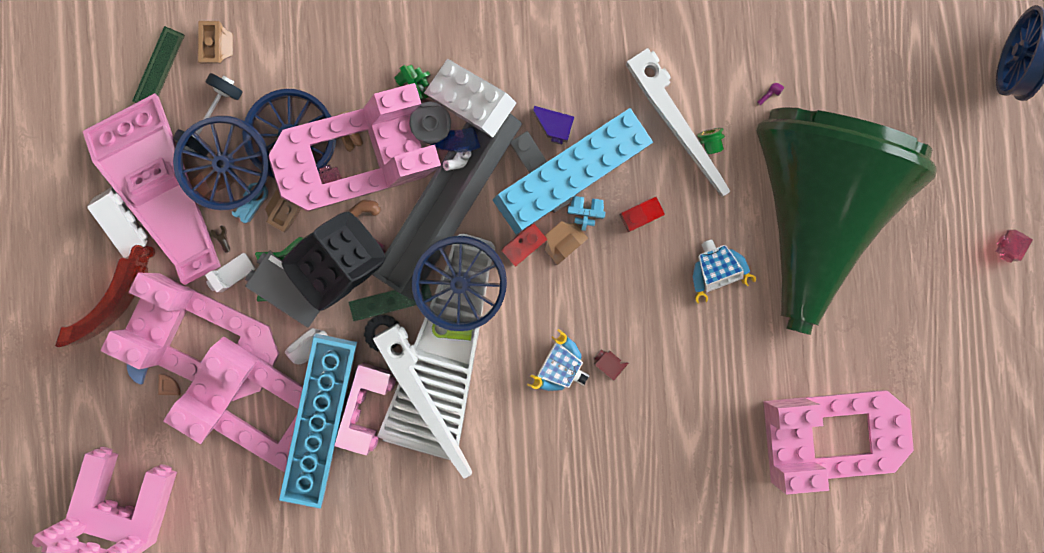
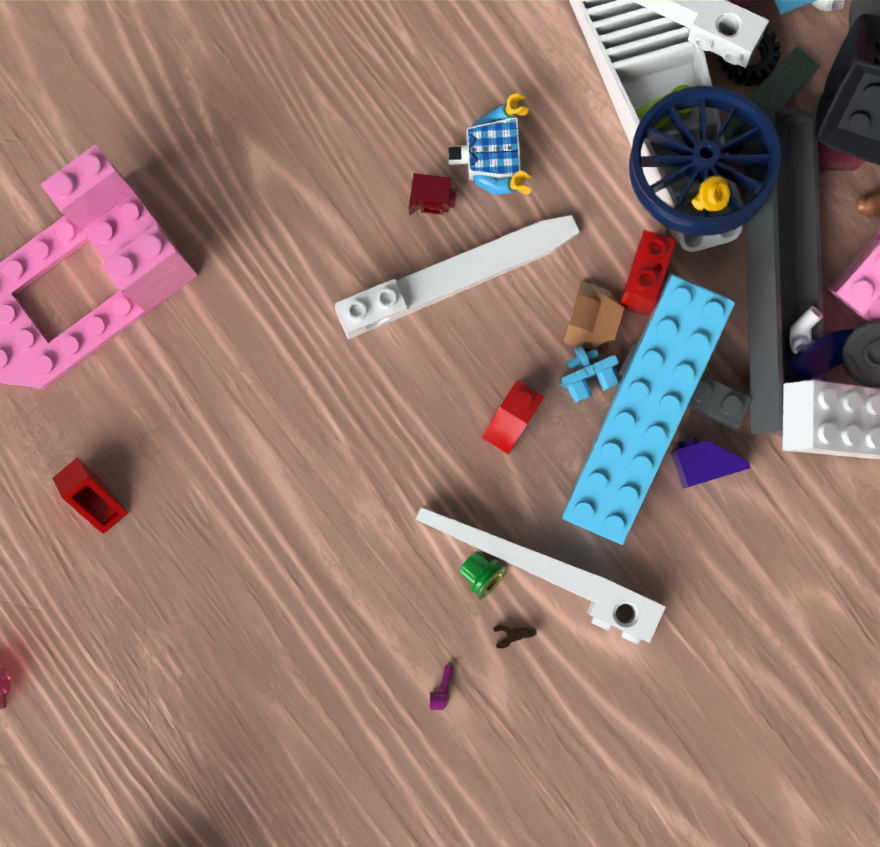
camera: 150 degrees right, 5 degrees down
(472, 259) = (713, 194): none -> yellow plate
(624, 312) = (416, 291): none -> white piece
(714, 98) = (514, 634): none -> dark brown piece
(718, 268) = (366, 406): torso -> none
(833, 194) = (269, 597): dark green piece -> none
(897, 315) = (89, 495): none -> red slope

